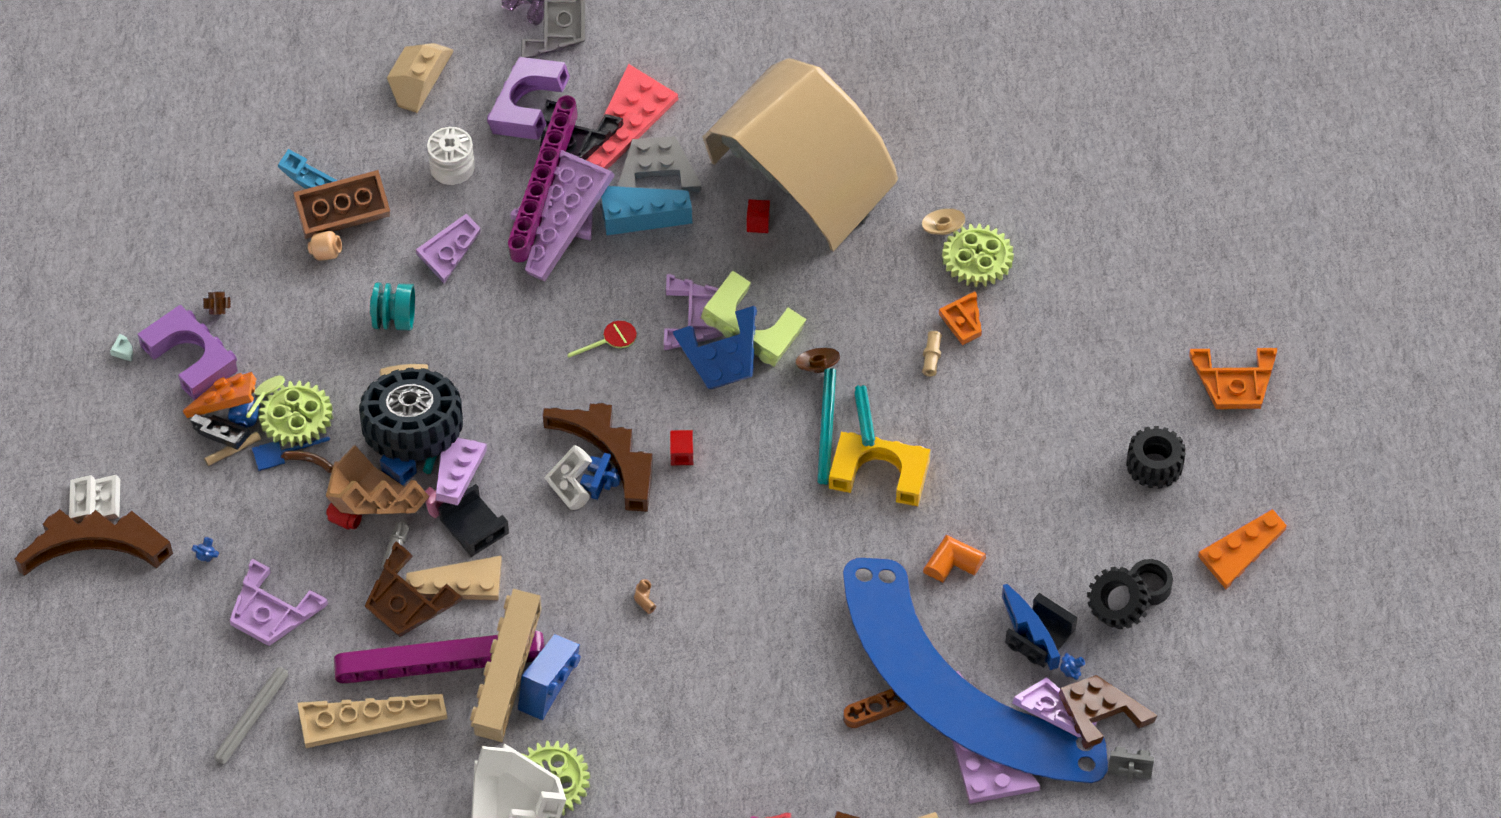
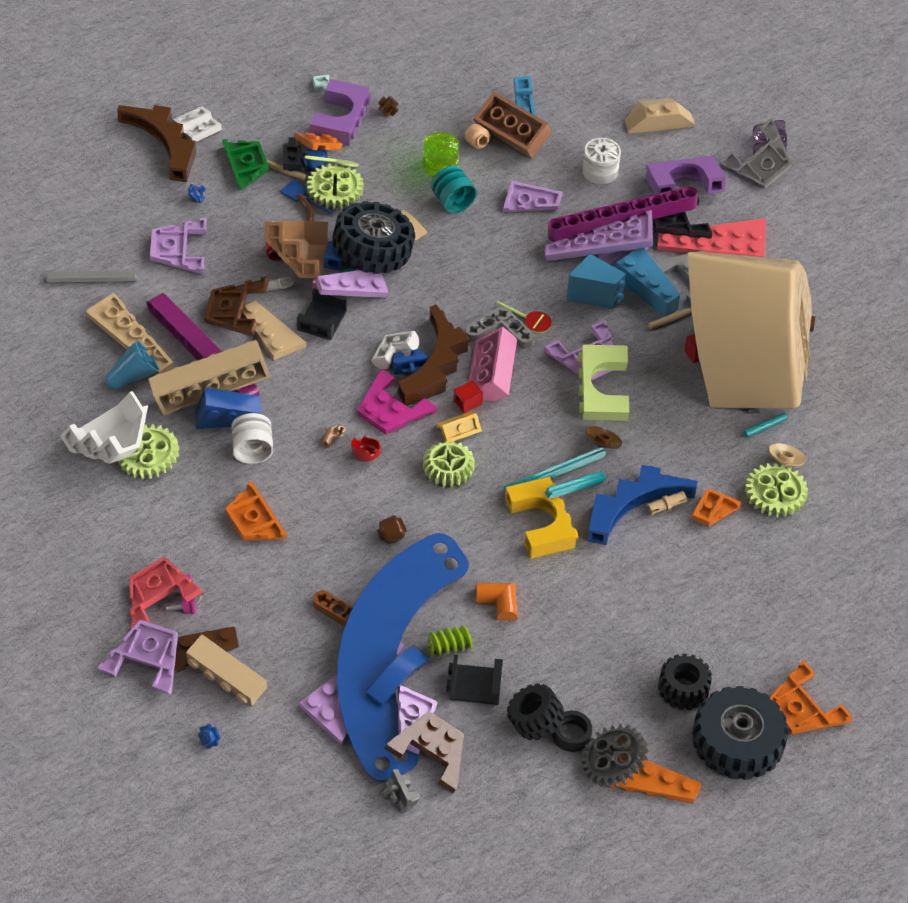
camera: 55 degrees right, 5 degrees down
(191, 478) = (246, 161): none -> green wing
(331, 292) = (440, 151): none -> clear neon green wheel
(428, 736) = (131, 367): none -> dark azure cone
(602, 364) = (498, 322): none -> light grey beam
(609, 669) = (252, 438): none -> white wheel
(618, 252) = (596, 283): none -> dark azure slope
(642, 532) = (386, 411): none -> dark pink wing
(653, 403) = (493, 363): none -> bright pink slope
(688, 574) = (365, 449): none -> red hair
(699, 219) = (669, 318): none -> tan piece
(705, 723) = (254, 517): none -> orange wing
(712, 476) = (459, 426): none -> yellow panel
(725, 359) = (559, 384): blue wing -> none
(750, 503) = (438, 459): none -> yellowish green gear
(808, 605) = (391, 529): none -> reddish brown head
(889, 219) = (765, 425): none -> teal piece
(908, 404) = (630, 494): none -> blue arch
(981, 628) = (449, 639): none -> lime piece
(998, 693) = (396, 674): none -> blue slope
(1027, 621) = (472, 668): blue slope -> none
(1071, 666) = (458, 713): blue plant -> none
(1187, 551) = (614, 755): none -> dark grey gear
(1242, 445) = (740, 732): none -> black wheel

